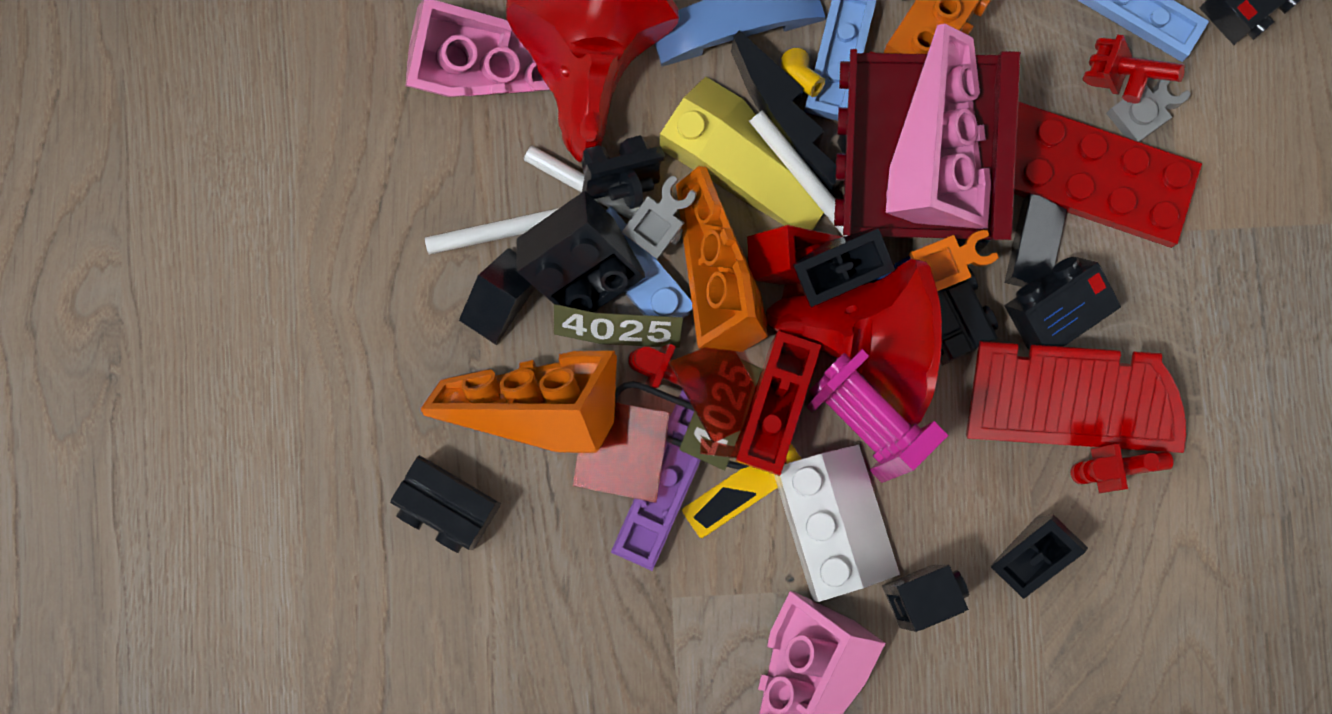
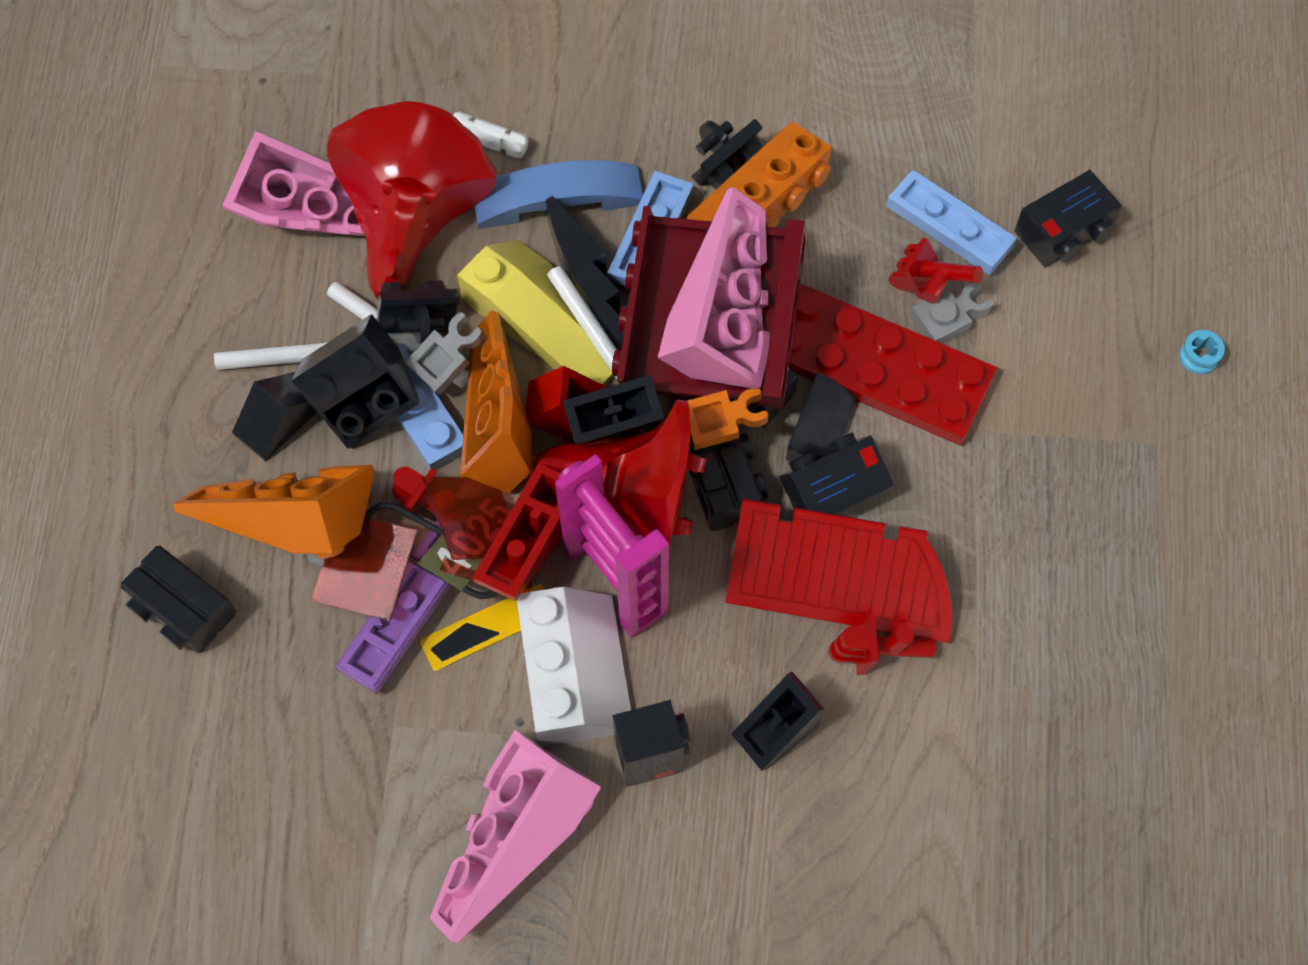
camera: 10 degrees right, 15 degrees down
(617, 328) = (383, 451): olive sticker -> none
(796, 64) = (607, 236): yellow arm -> none

